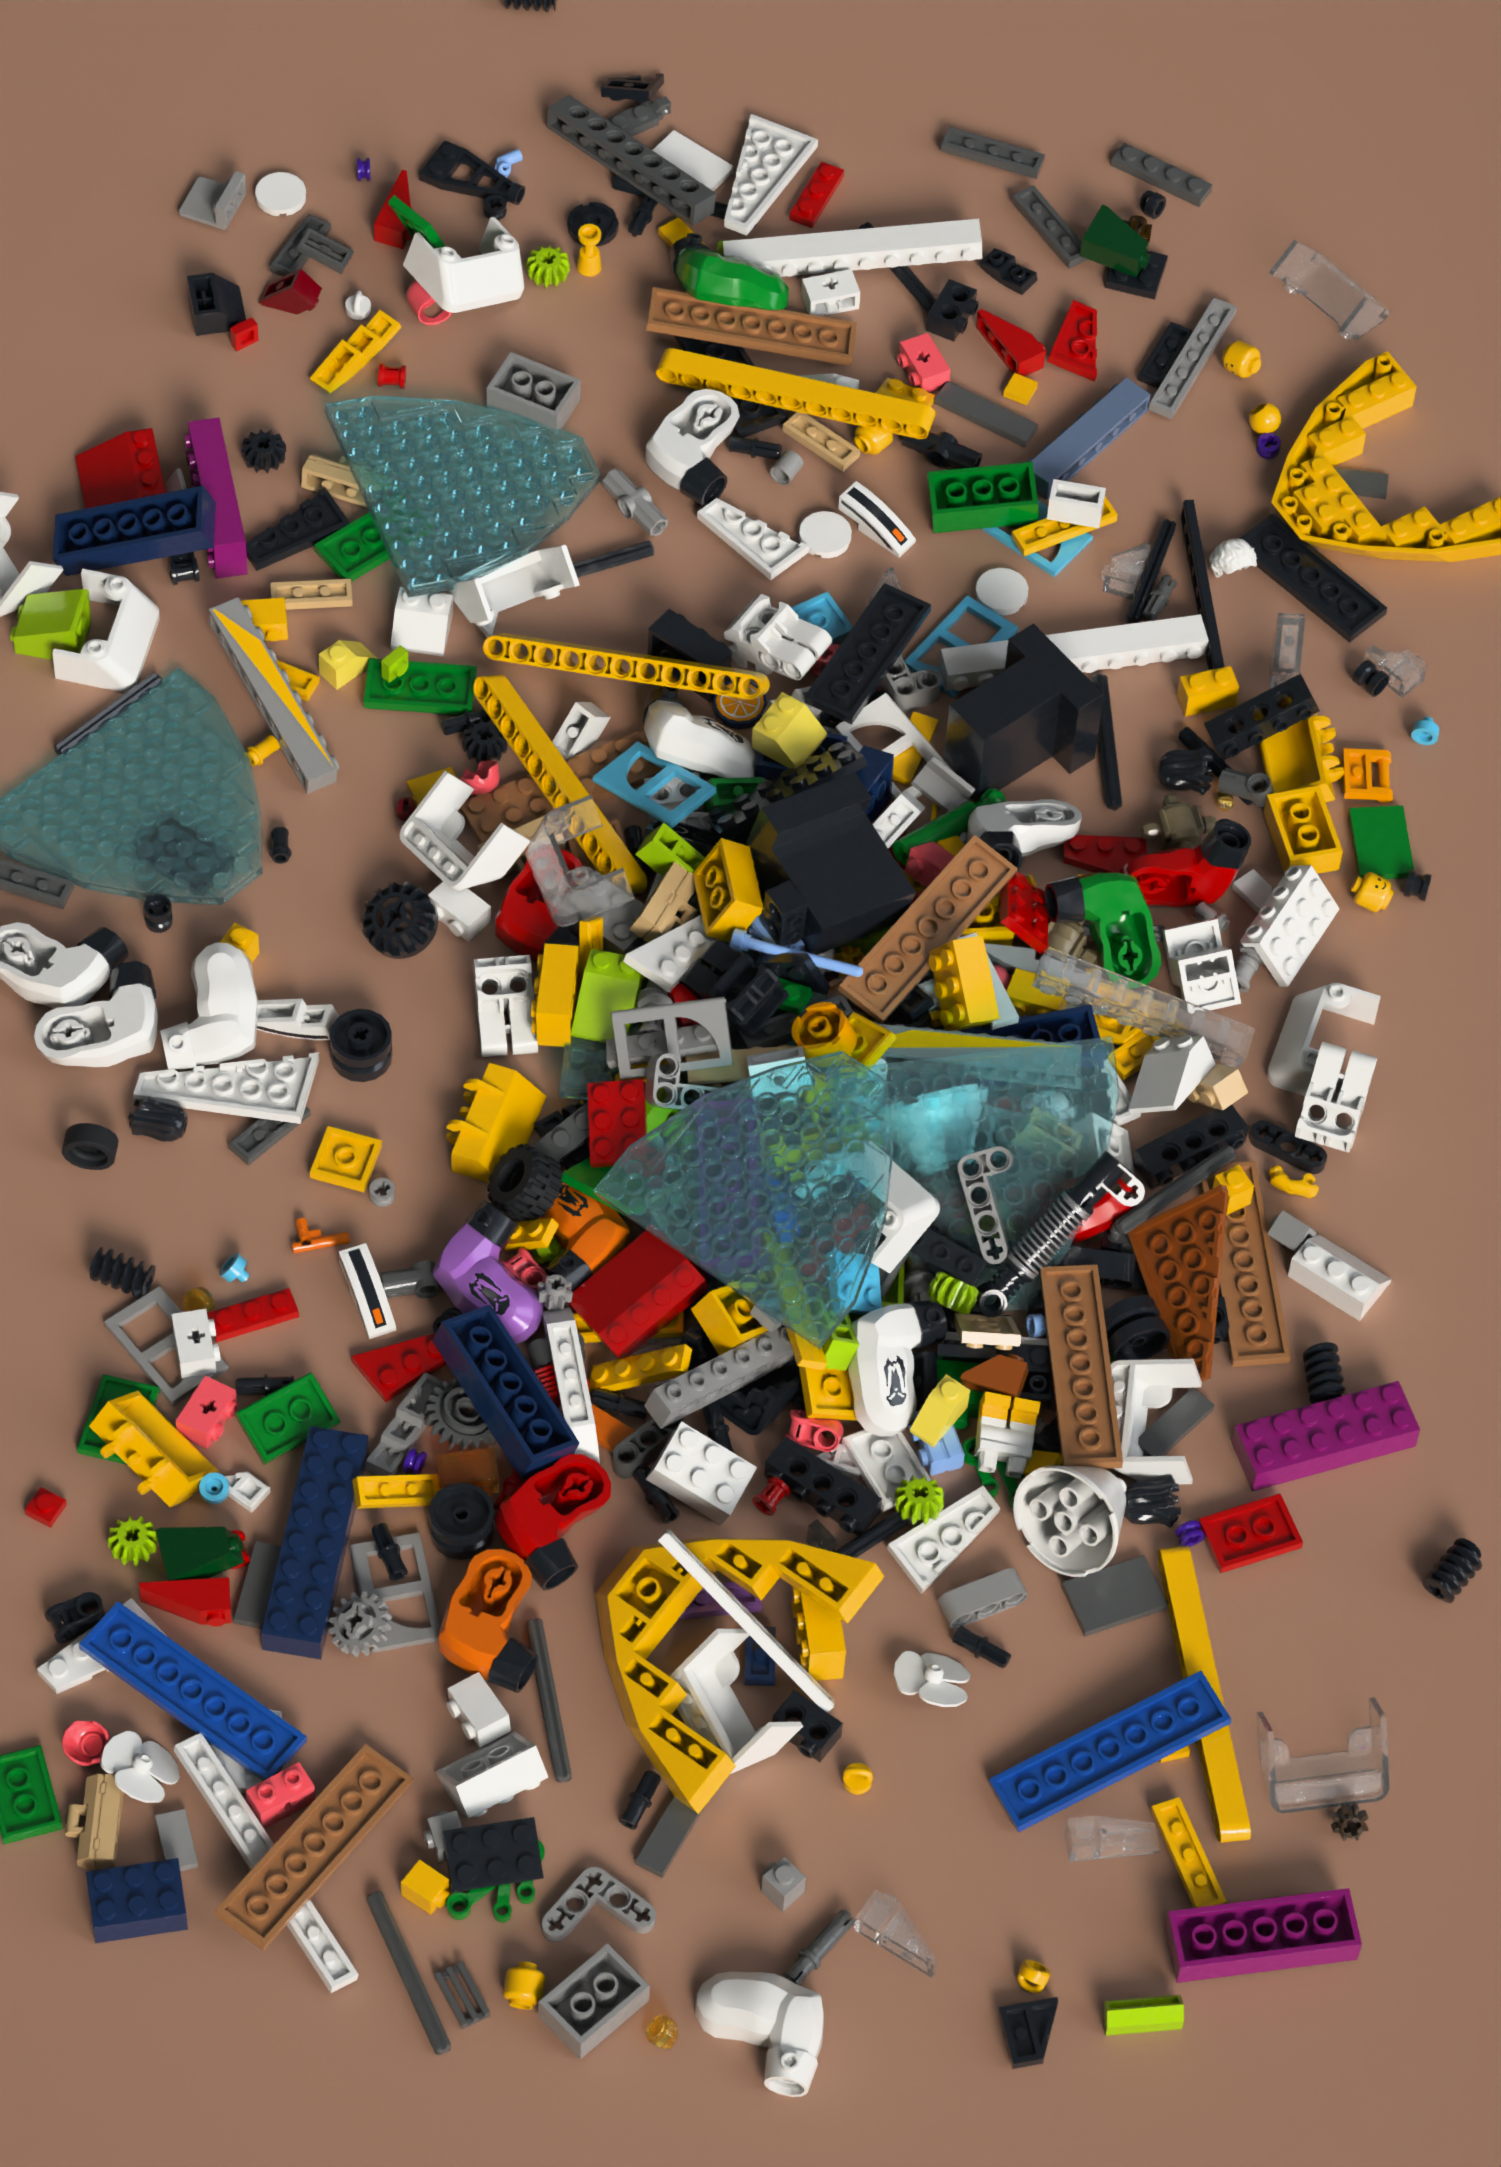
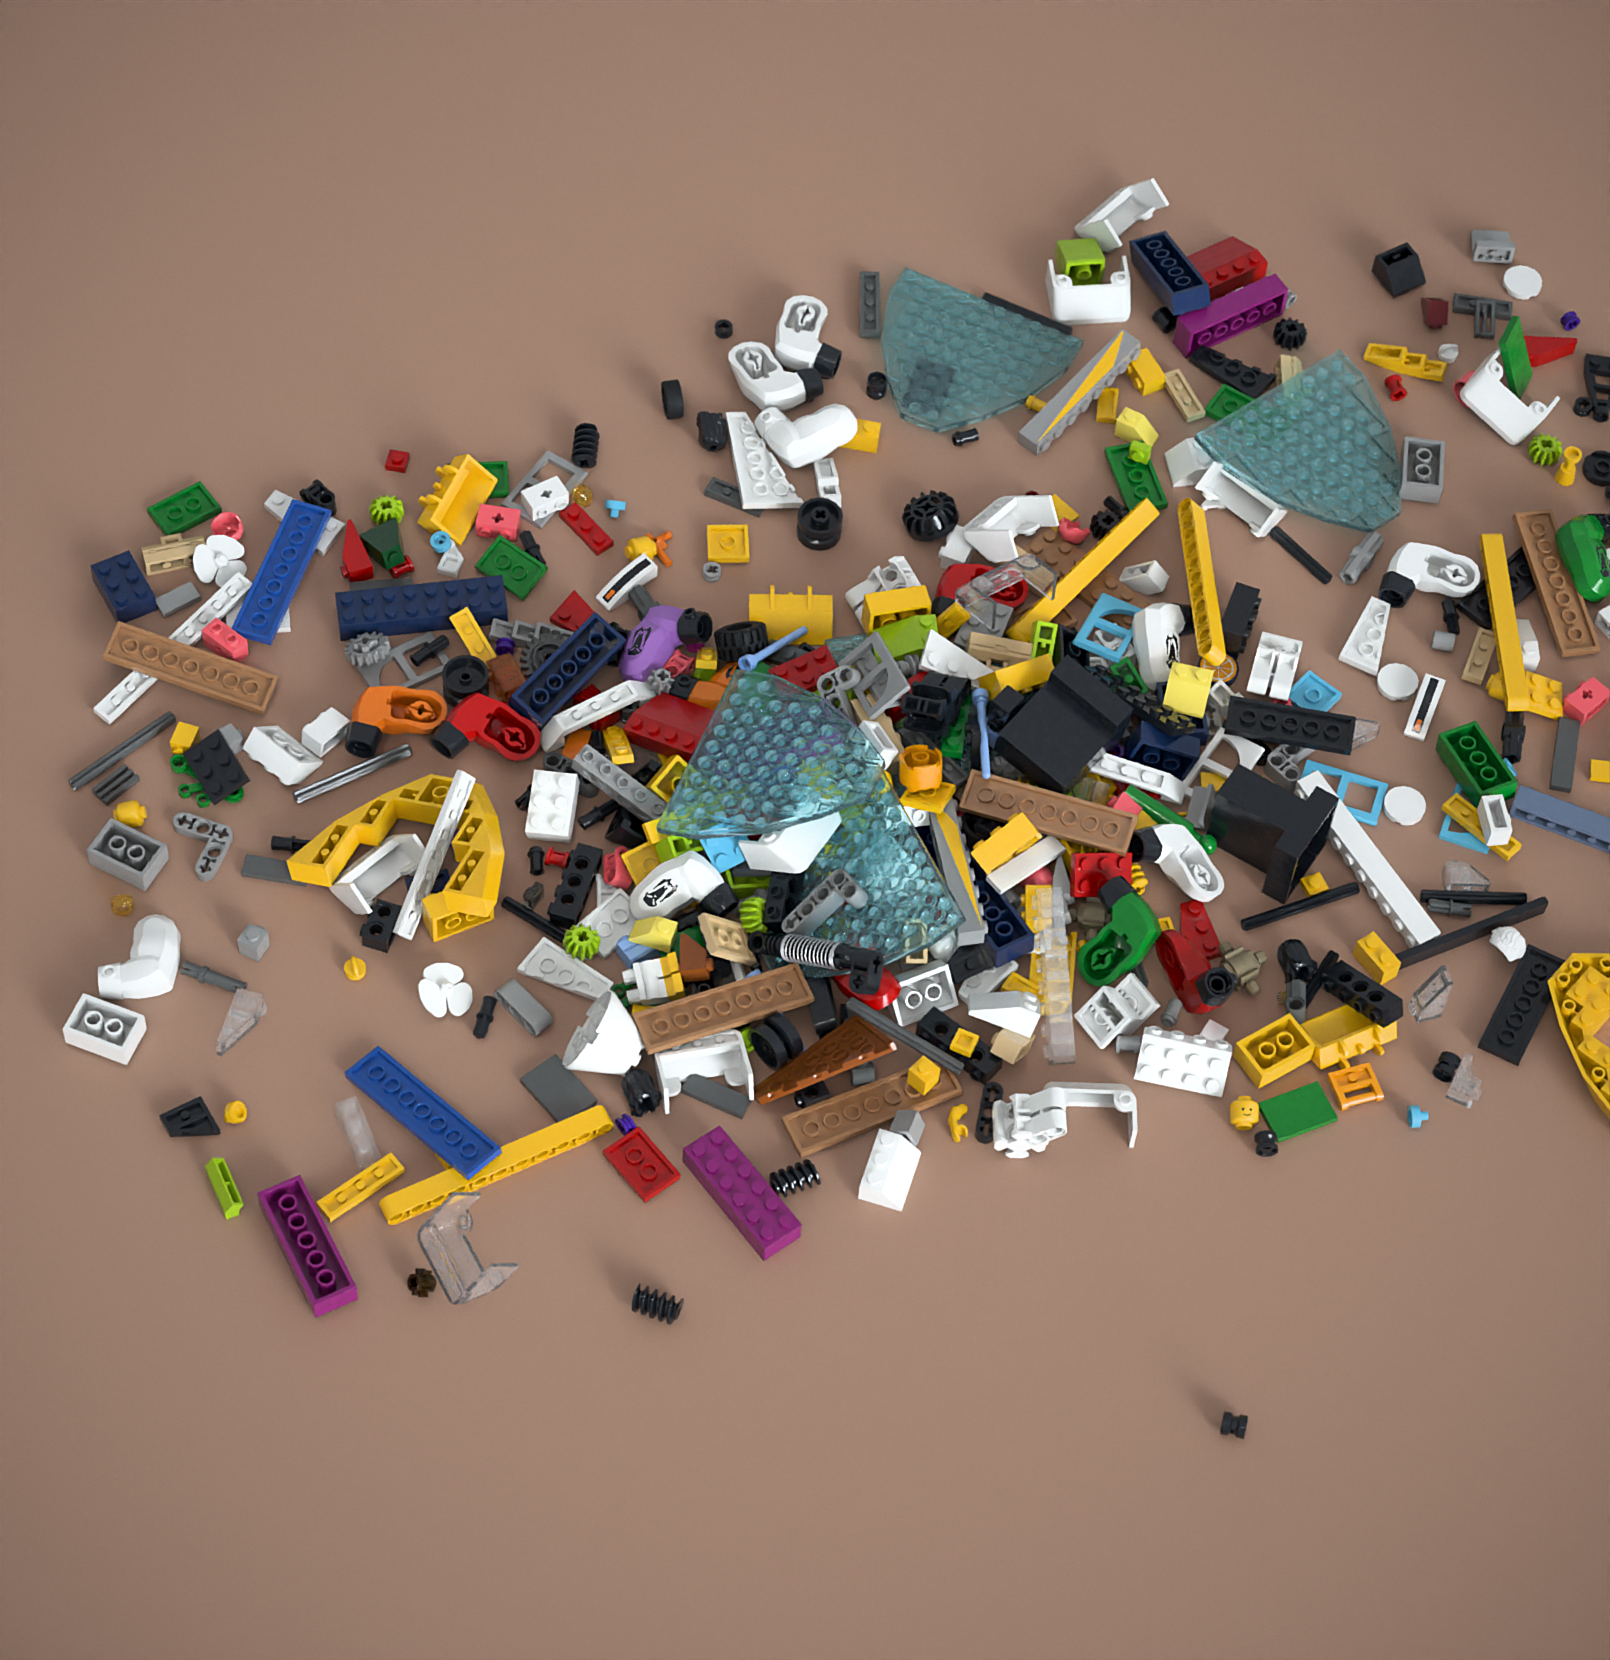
camera: 70 degrees right, 0 degrees up
(244, 334) = (1384, 294): red plate -> none
(319, 1259) = (639, 546): none -> yellow head
(578, 1177) = (749, 662): none -> light blue piece
(764, 1522) = (536, 860): none -> black pin
(863, 2096) = (104, 1029): none -> white brick
(1204, 1131) = (964, 1042): none -> yellow plate

